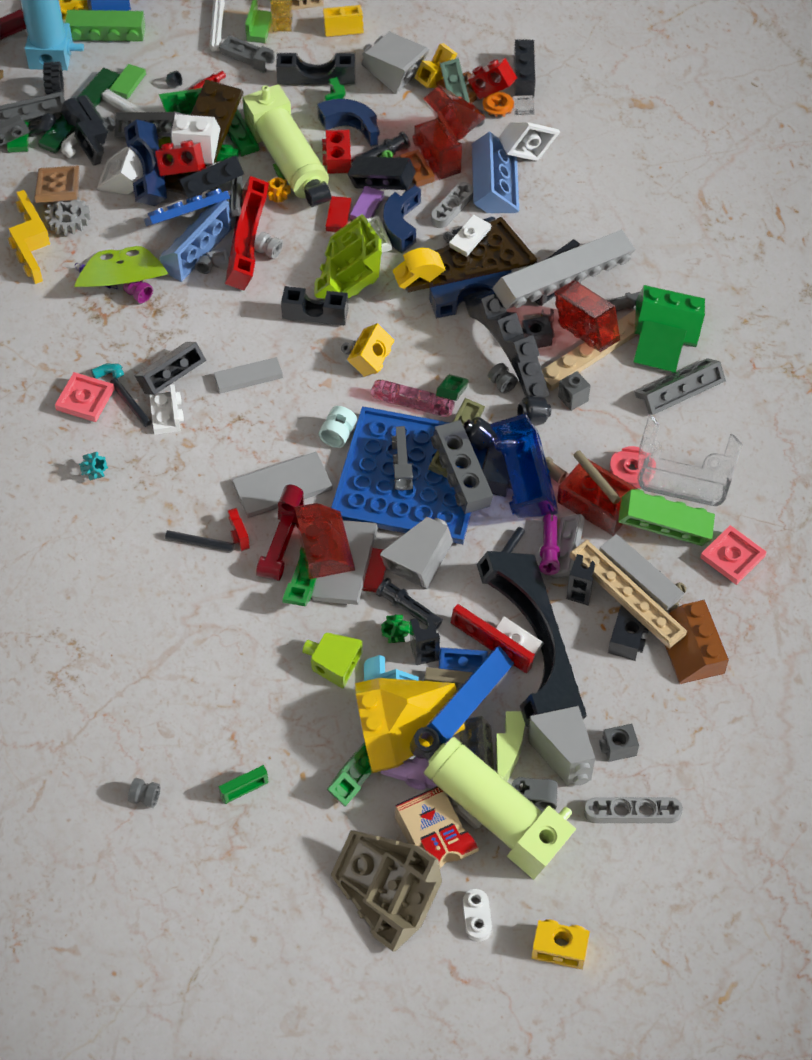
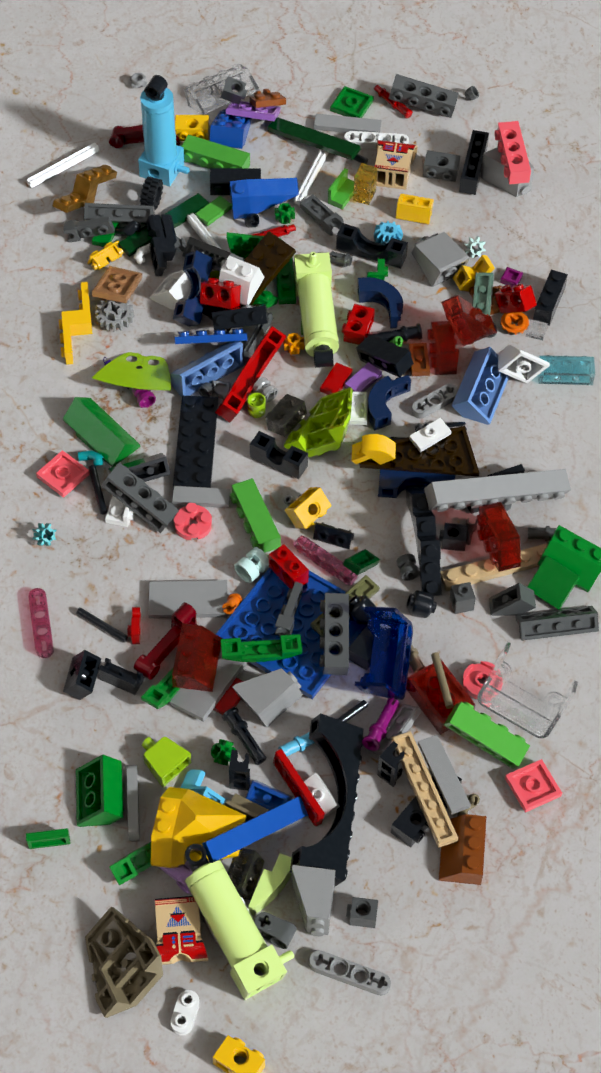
camera: 20 degrees right, 0 degrees up
(23, 163) = (99, 259): none -> yellow hinge
(105, 340) = (99, 430): none -> green slope
(132, 559) = (43, 622): none -> clear pink beam
(139, 45) = (221, 178): none -> black brick
(172, 49) = (260, 194): none -> blue wedge
(185, 393) = (141, 506): none -> dark grey brick
(204, 598) = (82, 675): none -> black brick
(207, 62) = (284, 213): none -> green gear
(216, 320) = (196, 441): none -> black plate
(246, 589) = (120, 677): none -> black hinge
(251, 393) = (193, 512): none -> coral plate
(266, 263) = (256, 405): none -> lime wheel
(278, 716) = (99, 792): none -> green slope
(291, 91) = (344, 259): none -> dark grey pin
(303, 264) = (286, 415): none -> clear smoke brick
(317, 375) = (255, 516): none -> bright green brick
(320, 715) = (133, 803): none -> light grey beam
(325, 50) = (386, 231): none -> medium azure gear
(334, 471) = (232, 603): none -> orange pin
(379, 415) = (288, 566): none -> red brick
(391, 509) = (261, 651): none -> green slope
(409, 371) = (332, 535): none -> black hinge
(429, 39) = (473, 242): none -> light aqua gear
(471, 593) = (297, 744): none -> medium azure pin
(473, 60) = (511, 277): none -> magenta tile
(577, 135) = (568, 370): none -> clear light blue brick
(626, 378) = (512, 601): none -> dark grey slope

